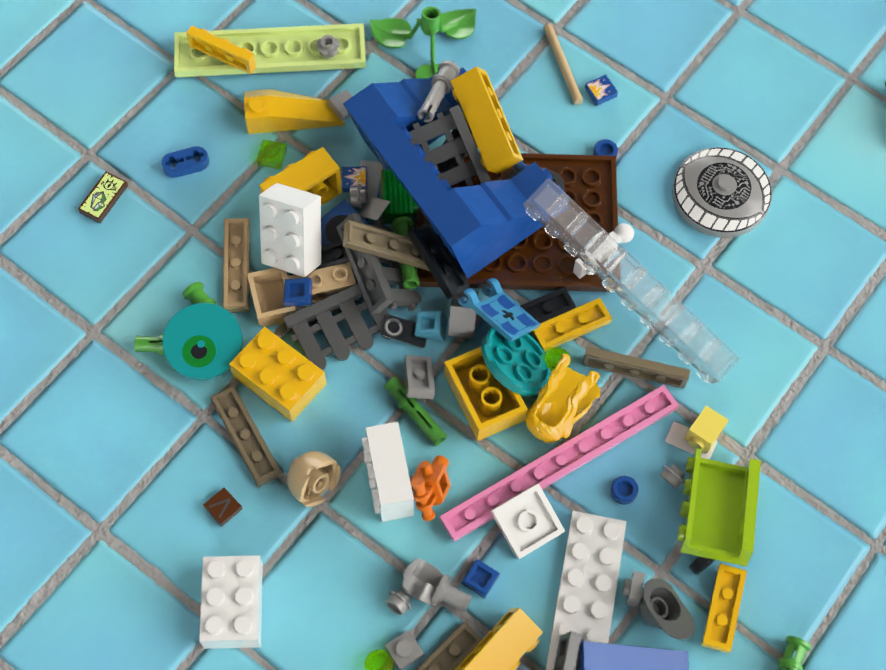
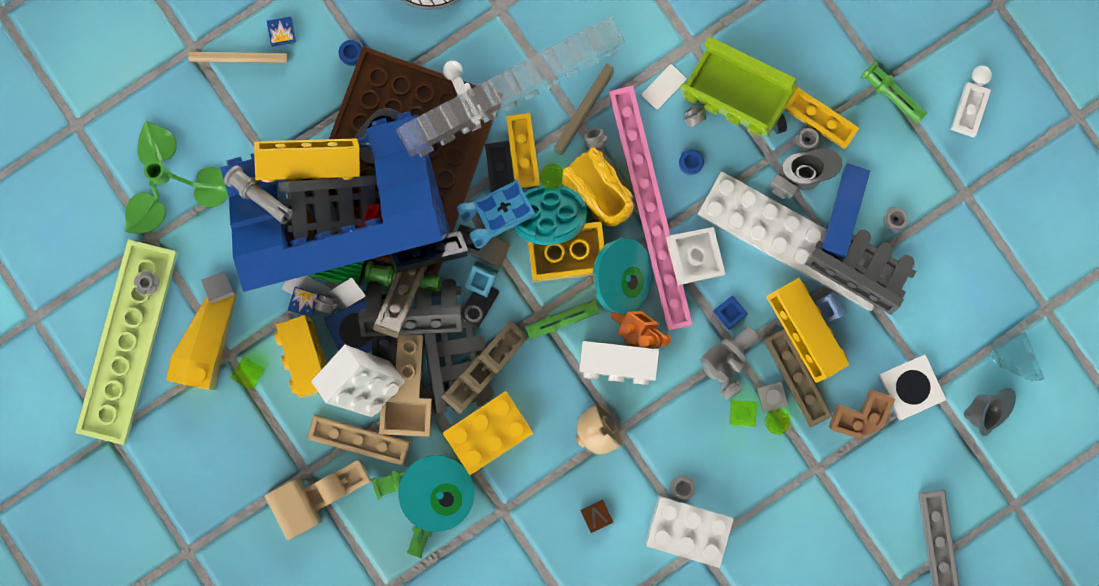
camera: 70 degrees left, 20 degrees up
(103, 197) = (243, 549): tile -> none
(159, 229) = (298, 506): none -> tan plate
(185, 162) = (223, 460): blue beam -> none
(221, 49) = (117, 390): yellow plate -> none
(246, 436) = (535, 478): dark tan tile -> none
(277, 585) = (682, 488): none -> light grey plate
(297, 292) = (416, 392): blue tile -> none
(343, 351) = (485, 367): none -> dark tan slope
(376, 622) = (742, 413): none -> clear neon green plate
(419, 377) = (533, 306): light grey plate -> none
(479, 448) = (622, 276): none -> teal tile
(610, 387) = (595, 138): none -> light grey plate
(701, 596) = (811, 134): none -> light grey plate
(706, 429) = (663, 71): light yellow brick -> none

